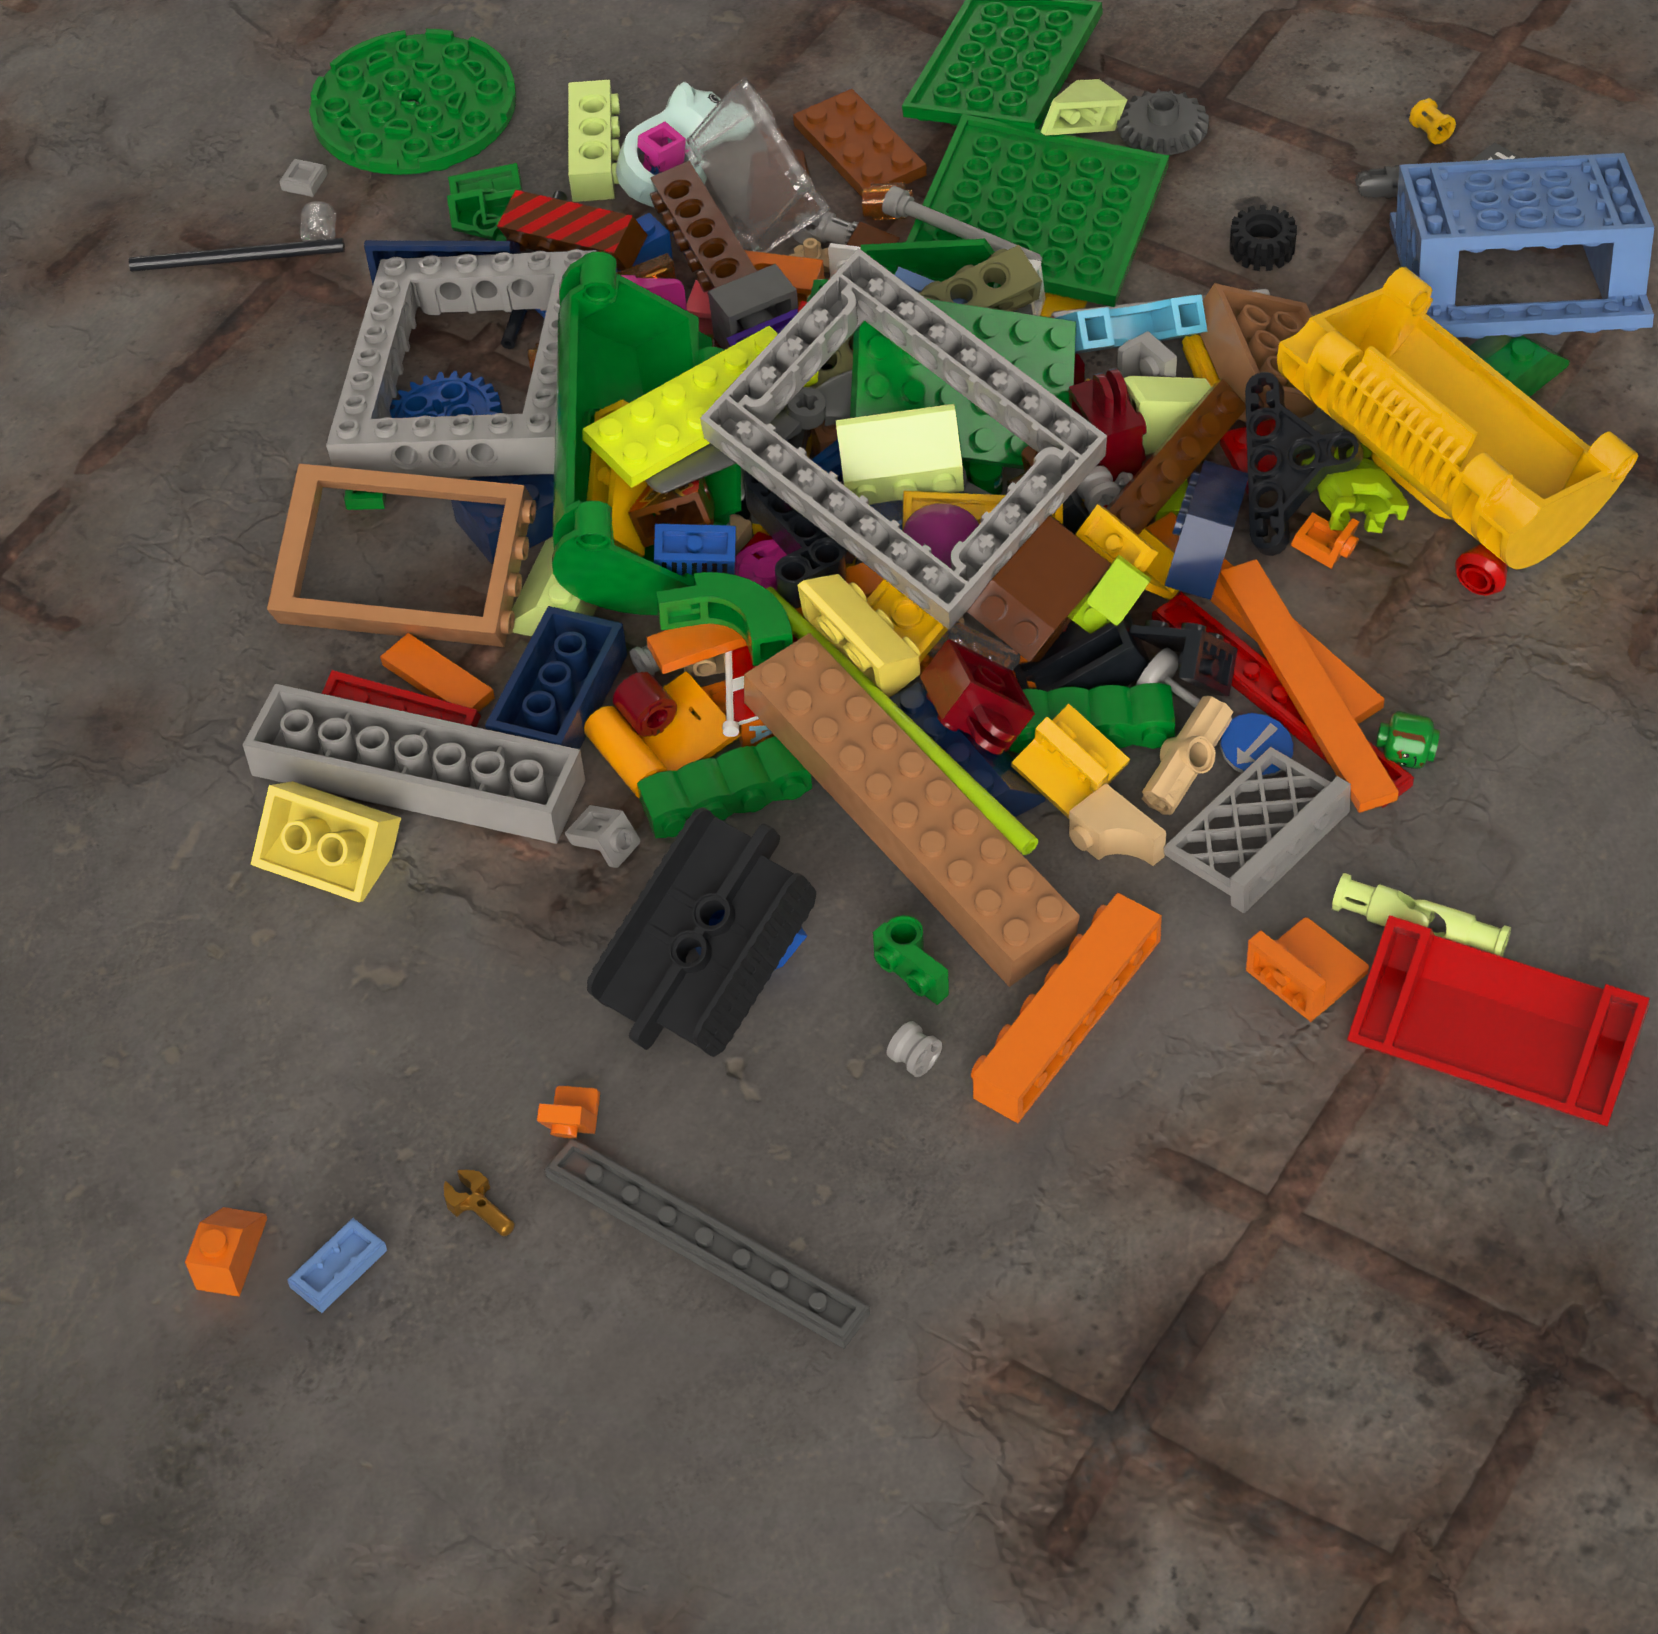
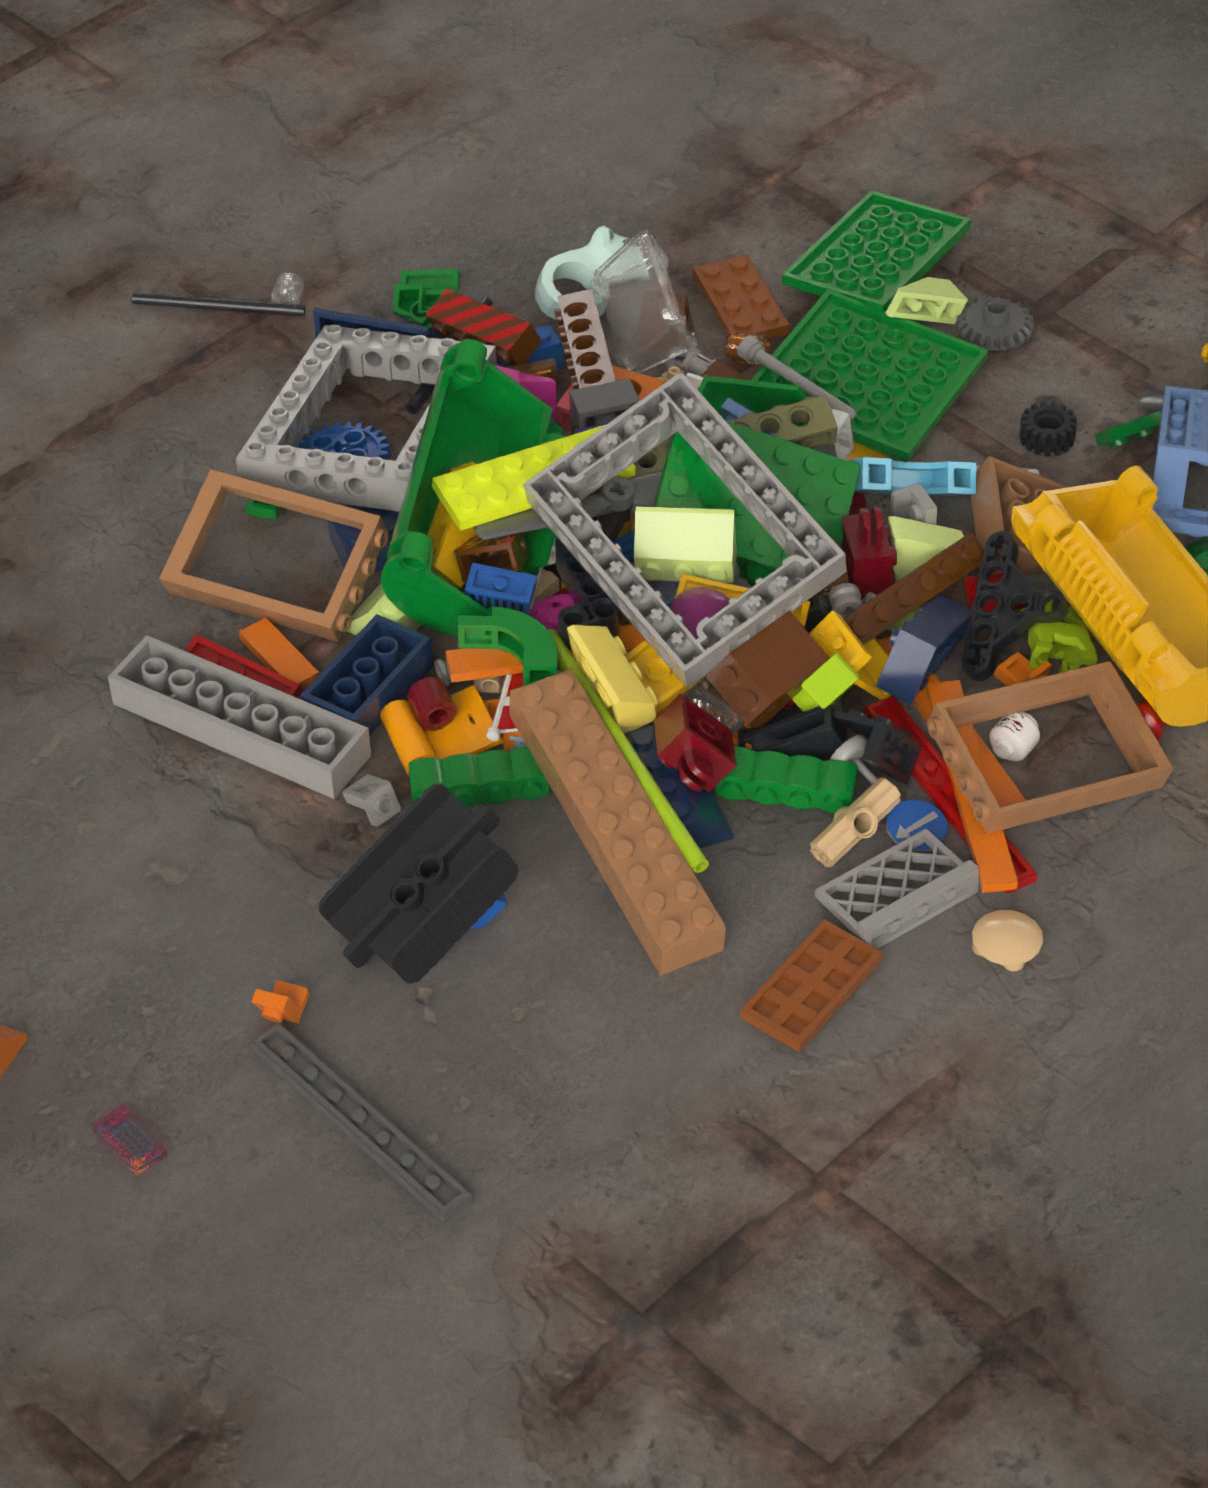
camera: 10 degrees right, 5 degrees down
(303, 177) = (288, 253): light grey tile -> none
(324, 840) = (153, 762): light yellow slope -> none
(337, 1265) = (69, 1082): medium blue plate -> none
(365, 112) = (353, 215): green plate -> none
(431, 1323) = (129, 1140): none -> clear pink tile
(477, 1201) = (191, 1056): pearl gold bar -> none
(592, 140) = (524, 260): yellowish green brick -> none
(657, 152) = (571, 275): dark pink leg -> none
(909, 960) = (581, 931): green plate -> none
(914, 1049) = (566, 1006): light grey wheel -> none
(1065, 1007) = (696, 998): orange brick -> none
(1069, 760) = (757, 809): yellow bracket -> none
(1112, 825) = (778, 866): tan arch -> none
(1194, 965) = (811, 985): none -> dark orange plate
(1199, 359) = (964, 515): yellow axle -> none
(1304, 967) = (900, 1004): orange bracket -> none
(1339, 613) = (1014, 736): none -> white head
(1366, 216) = (1118, 434): none -> green plate
(1382, 901) = (990, 974): yellowish green piece -> none
(1403, 861) = (1007, 938): none -> tan dish
(1408, 739) = (1041, 843): green head -> none
(1451, 564) = (1116, 709): none -> medium nougat window
(1498, 1022) = (1044, 1075): red slope -> none

